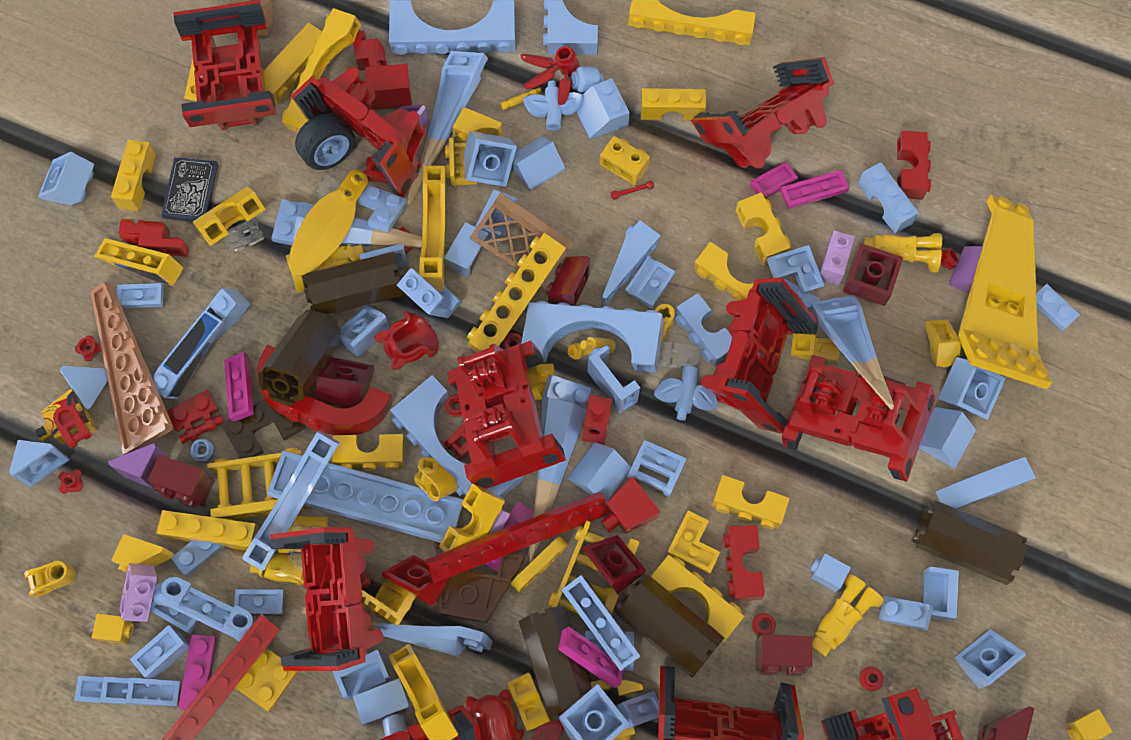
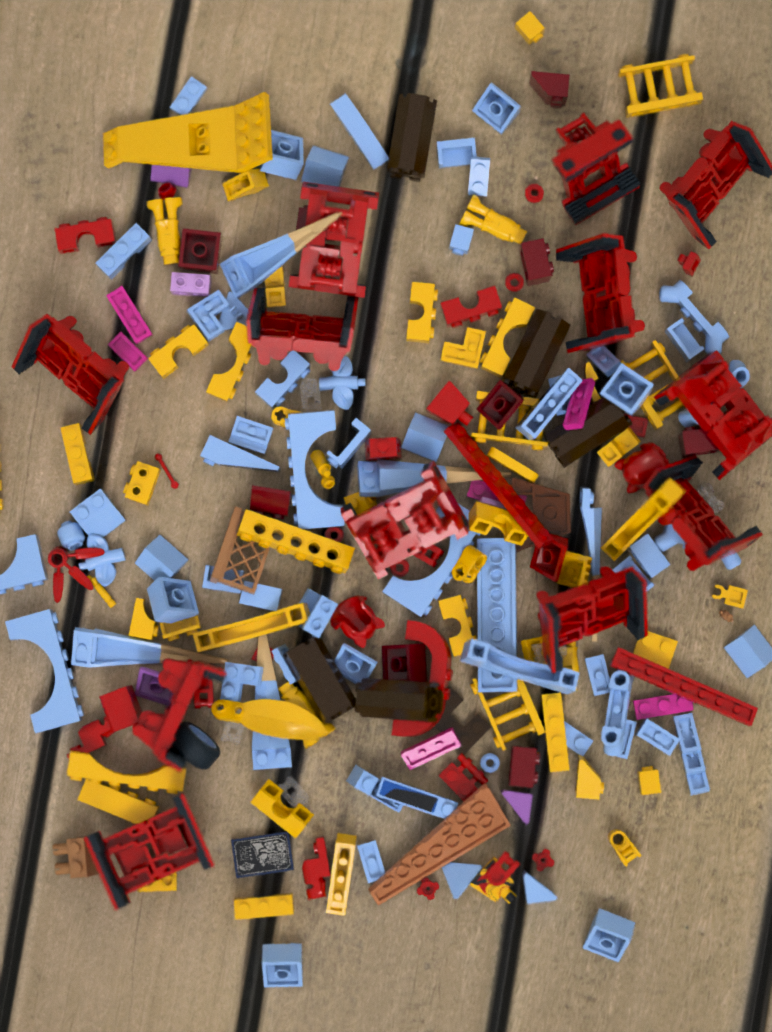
camera: 100 degrees left, 15 degrees up
(138, 592) = (618, 768): lavender brick -> none
(660, 461) = (404, 392): light blue plate -> none

